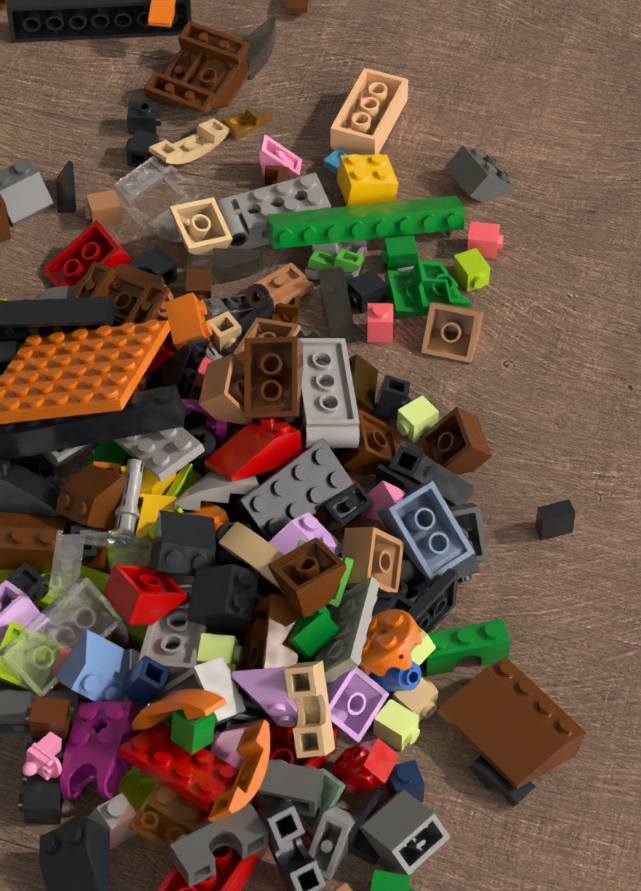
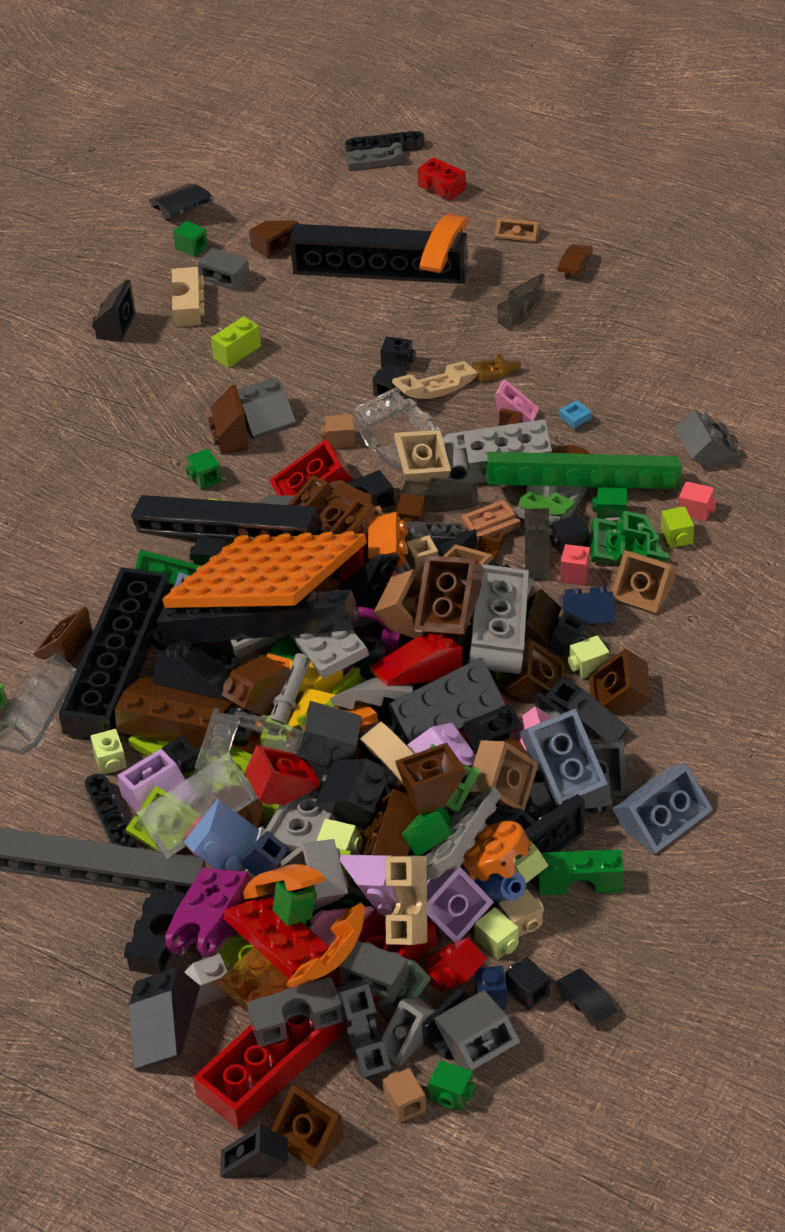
camera: 15 degrees right, 5 degrees down
(42, 758) = (153, 910): bright pink piece -> none
(49, 716) = (169, 876): reddish brown brick -> none
(66, 189) = (310, 410): black slope -> none
(204, 71) = (465, 318): reddish brown slope -> none
(258, 296) = (461, 525): black plate -> none
(366, 179) = (594, 431): yellow brick -> none
(369, 113) = (613, 372): light nougat brick -> none
(409, 363) = (592, 606): none -> dark blue slope
(440, 772) = (527, 983): none -> black brick
(512, 723) = (608, 948): reddish brown slope -> none
(529, 567) = (663, 808): none -> sand blue slope
(555, 519) = (702, 765): black piece -> none

